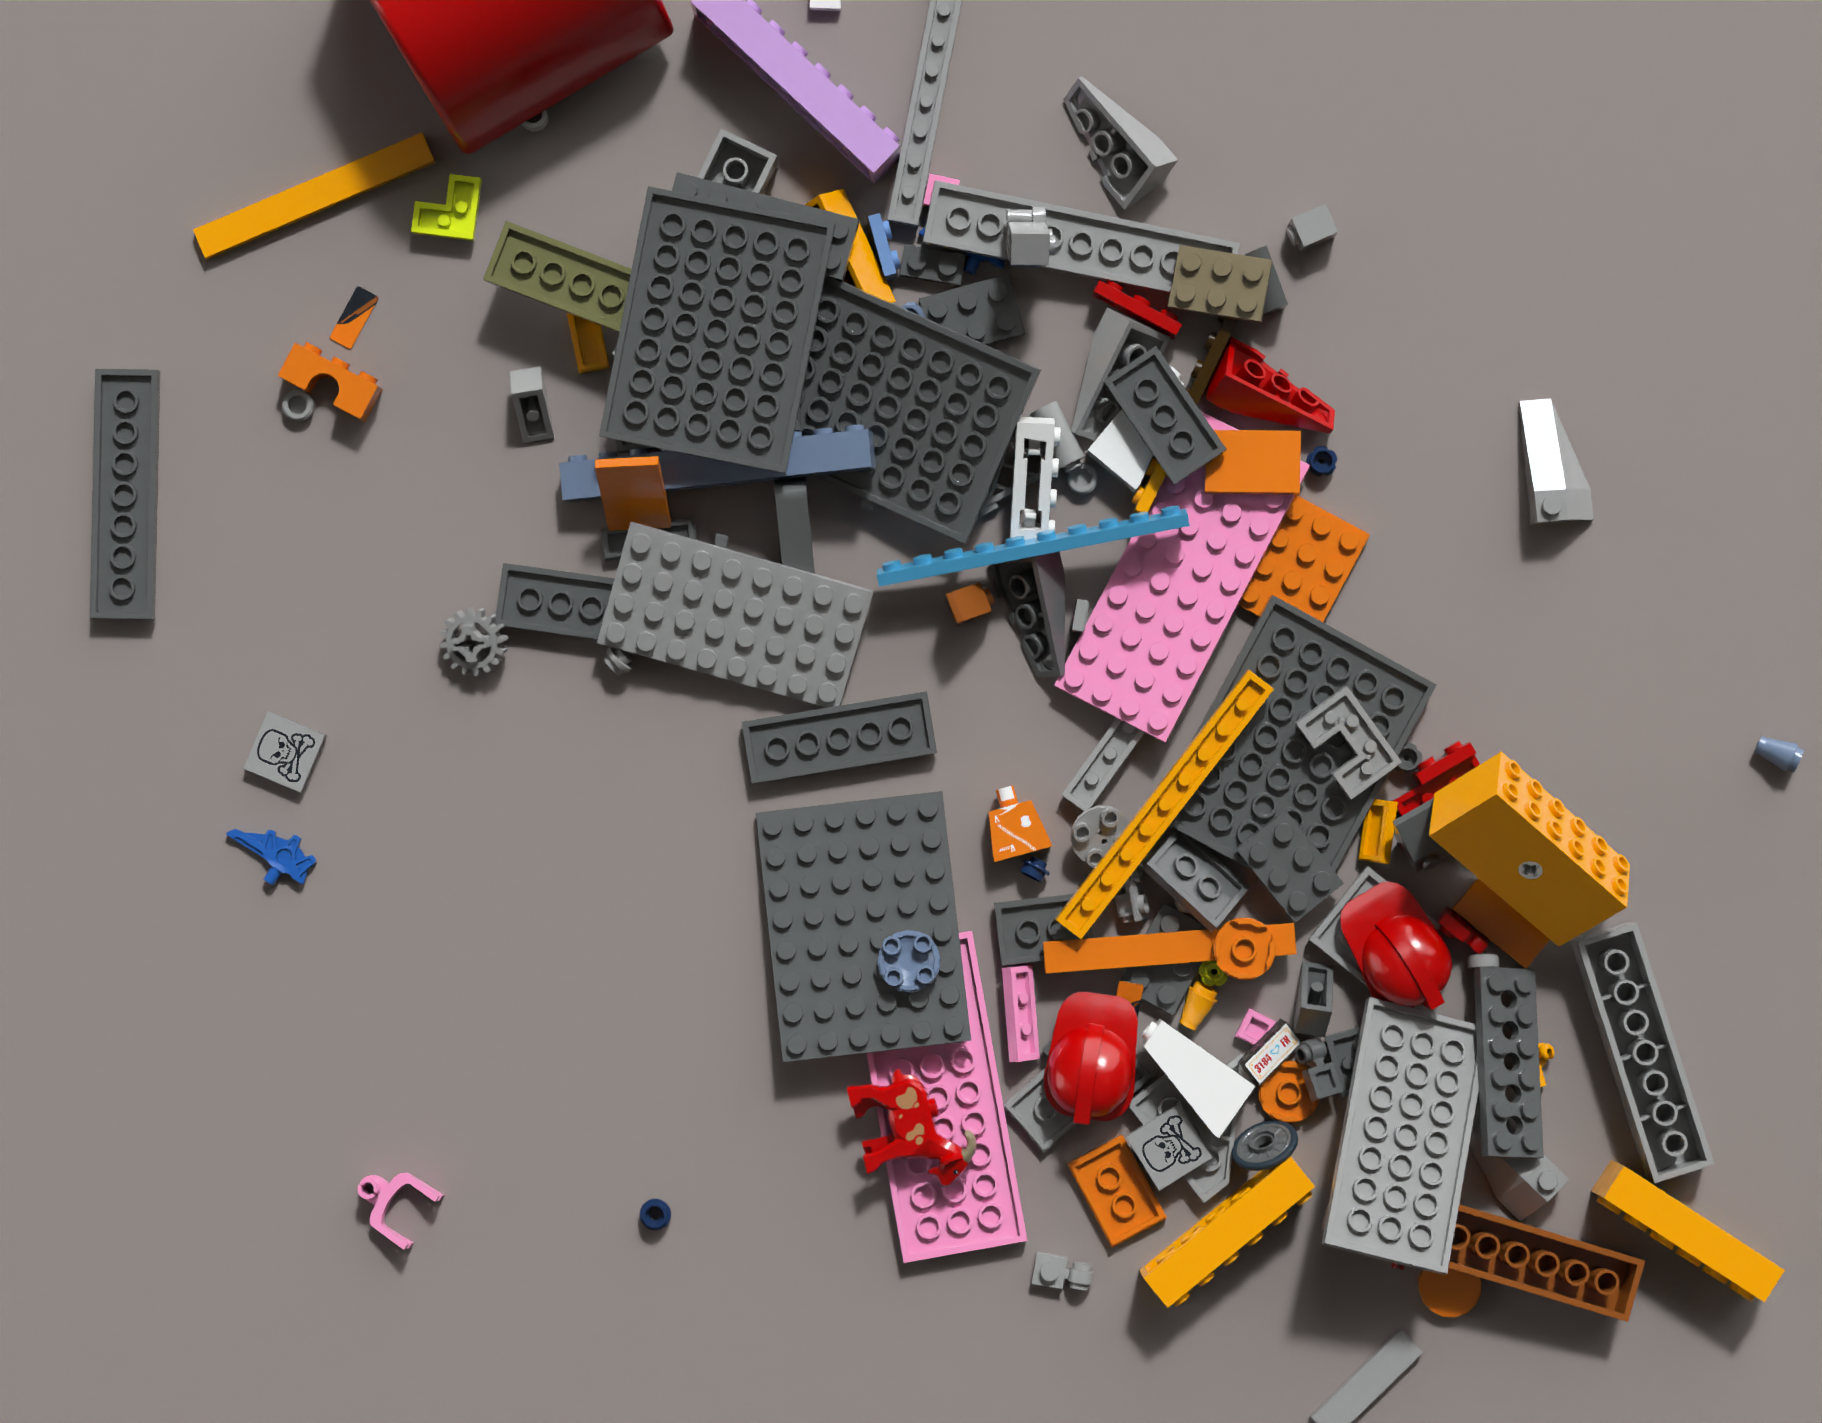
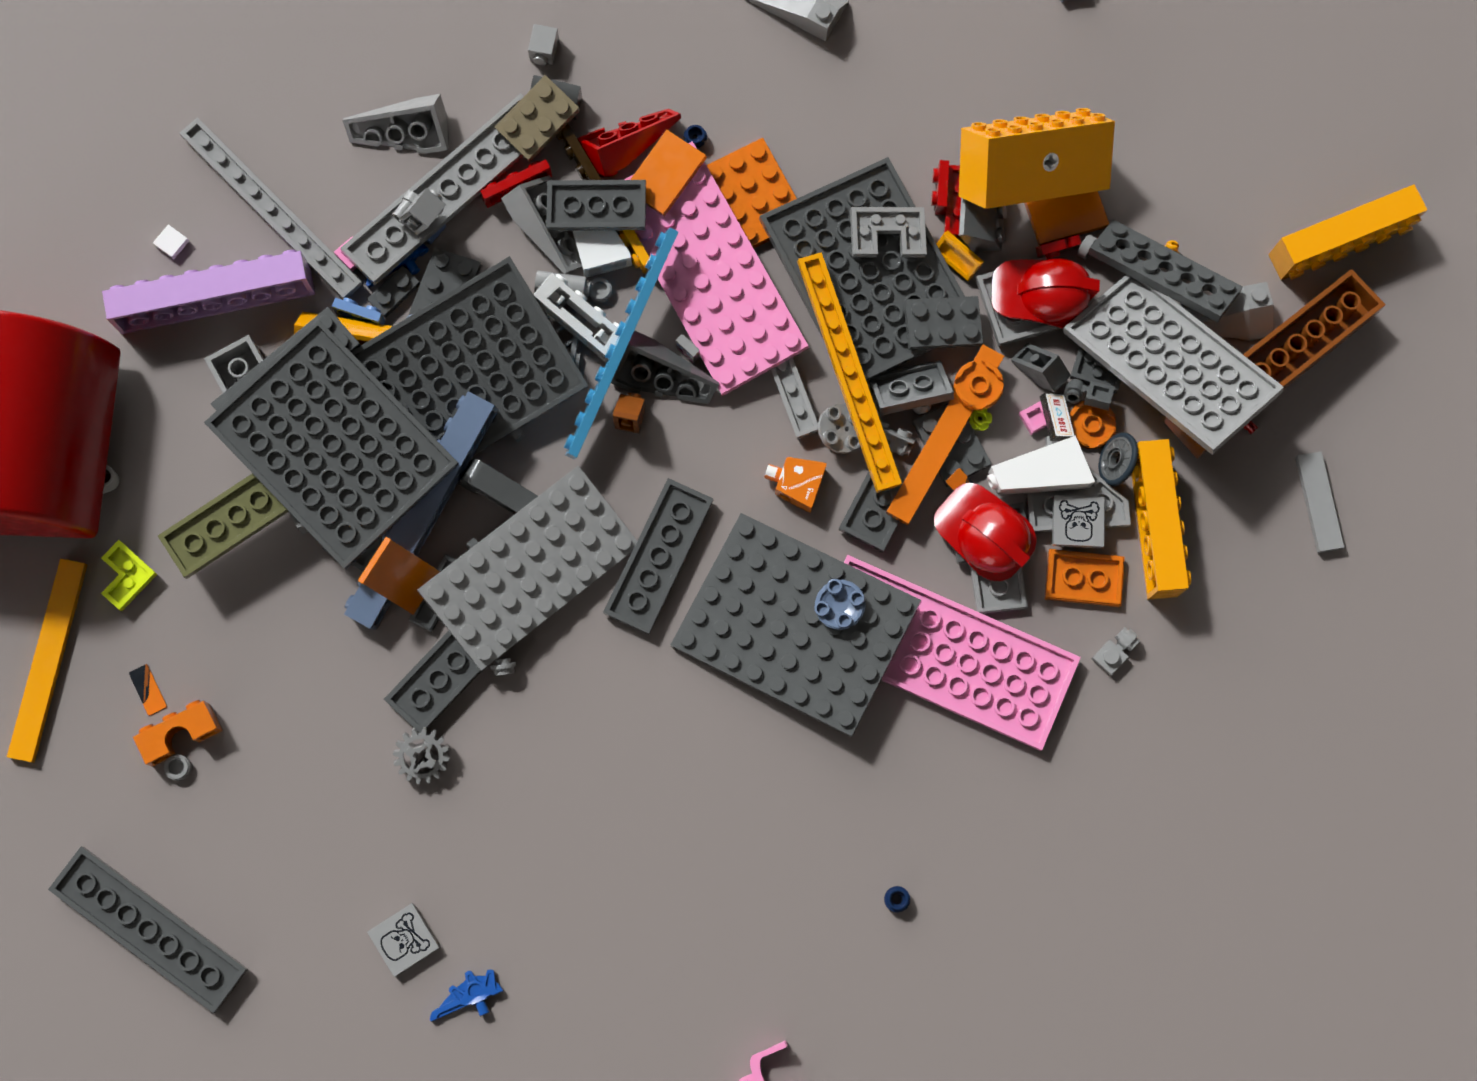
camera: 55 degrees left, 10 degrees down
(531, 404) = (292, 608): light grey slope -> none
(588, 345) = (279, 544): light orange tile -> none
(912, 1125) = (954, 679): red animal -> none
(1020, 1013) = (924, 560): bright pink plate -> none
(1034, 869) = (833, 488): dark blue plate -> none
(1198, 1004) = (995, 443): light orange cone -> none
(1415, 758) = (927, 204): dark grey plate -> none
(1449, 1293) = (1289, 409): orange tile -> none
(1642, 1052) = (1211, 186): light grey brick -> none

